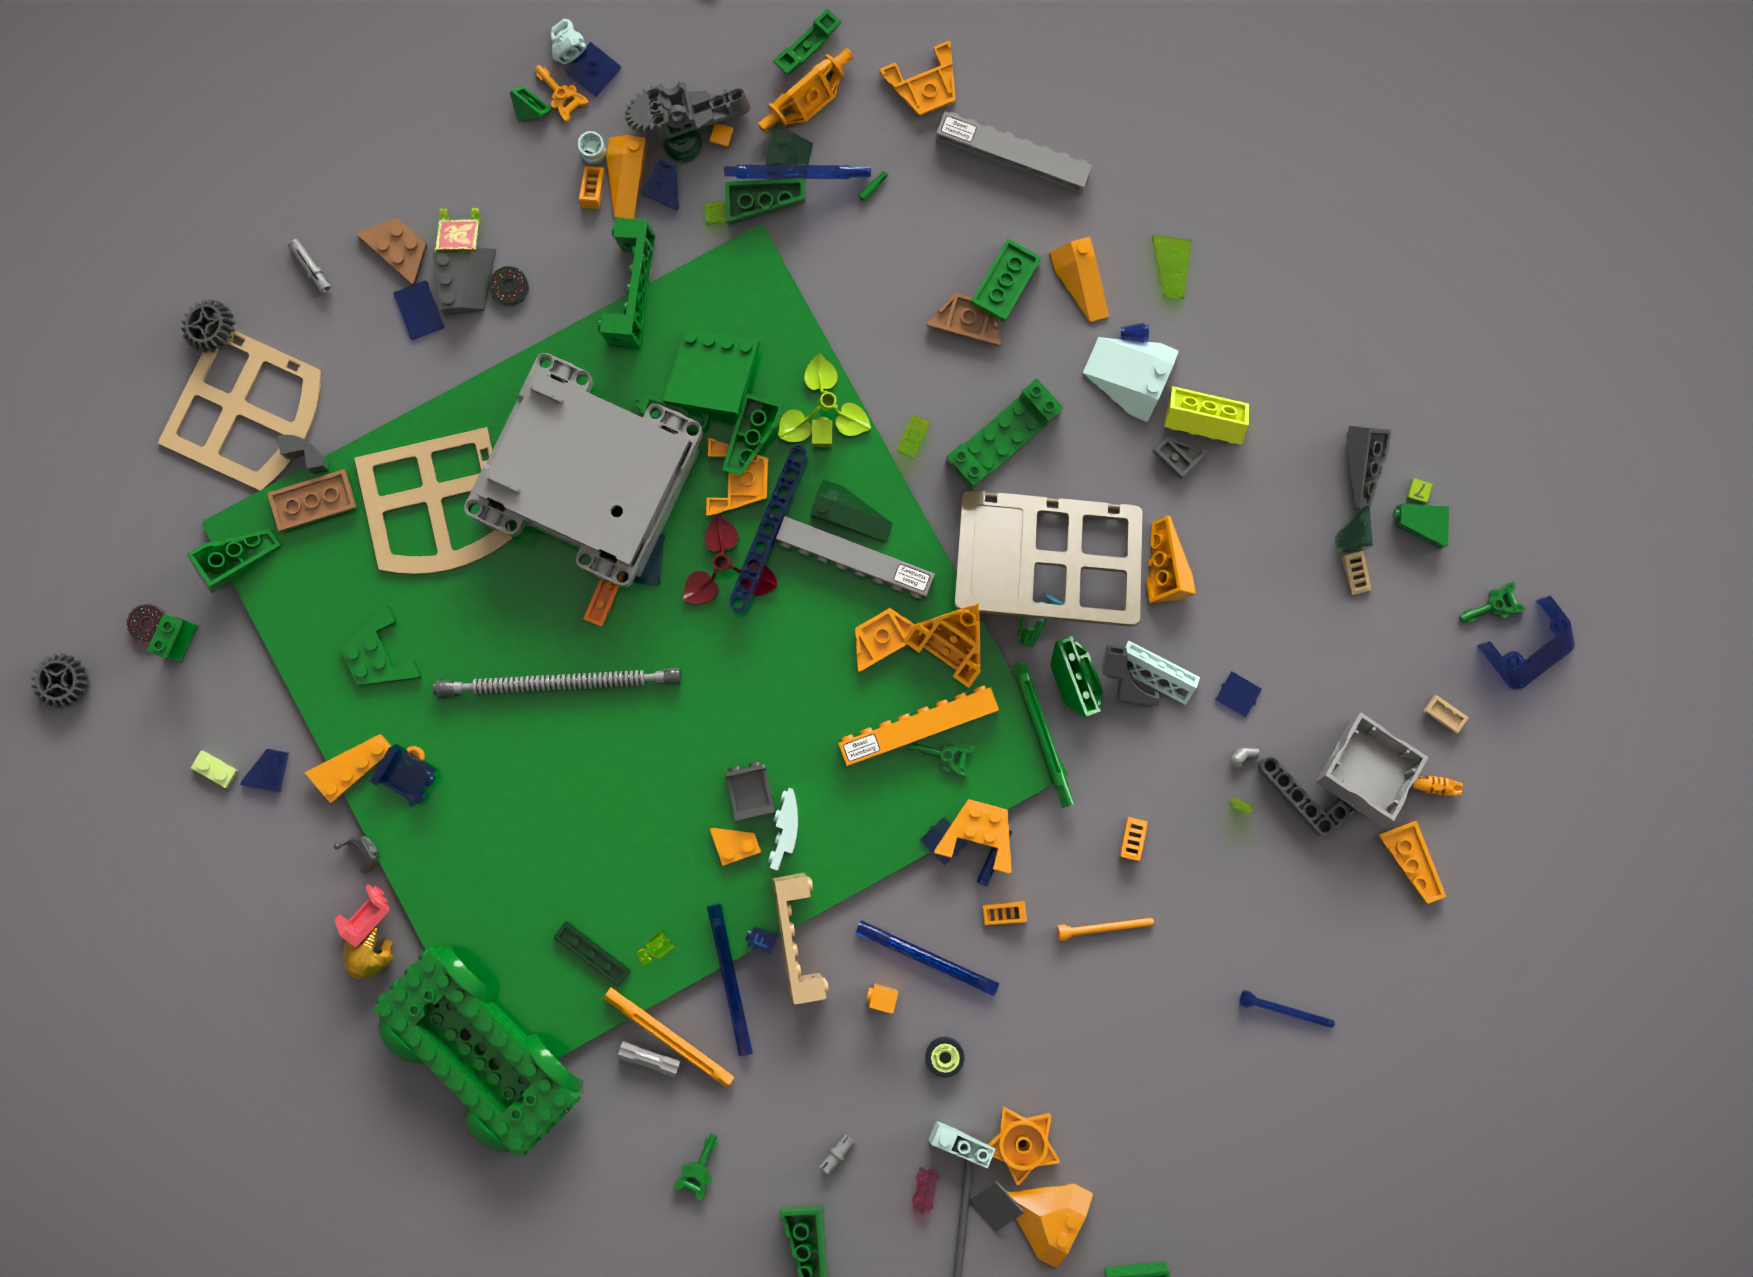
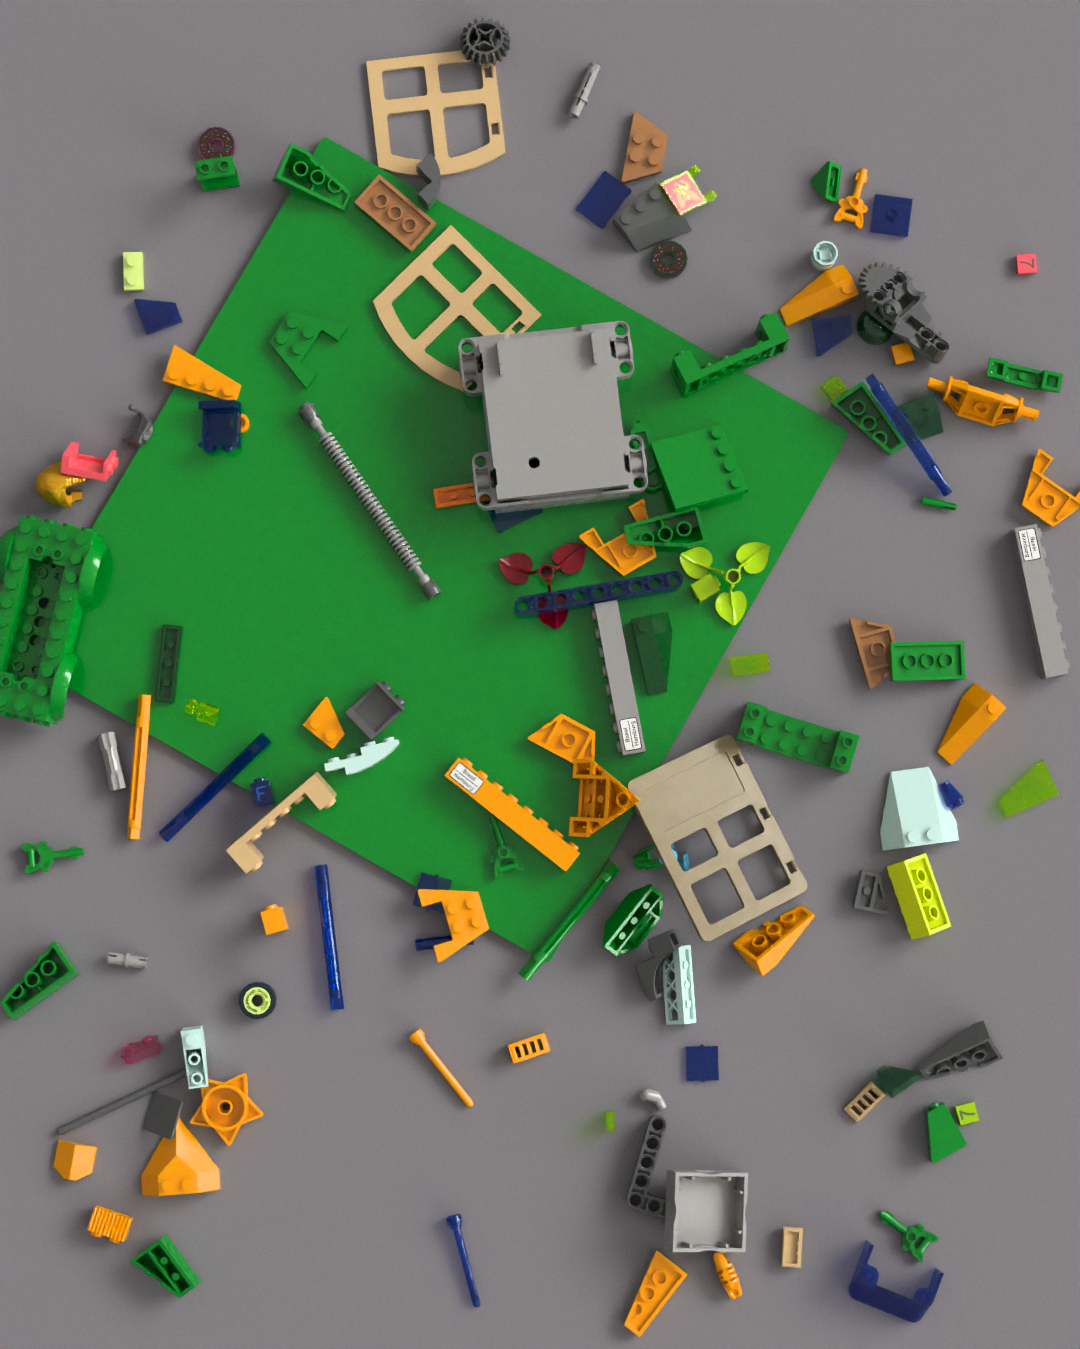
camera: 60 degrees right, 0 degrees up
(73, 690) = (115, 102): dark grey gear -> none
(567, 43) = (898, 181): light aqua piece -> none
(591, 200) = (781, 281): light orange slope -> none
(1022, 913) = (414, 991): light orange slope -> none

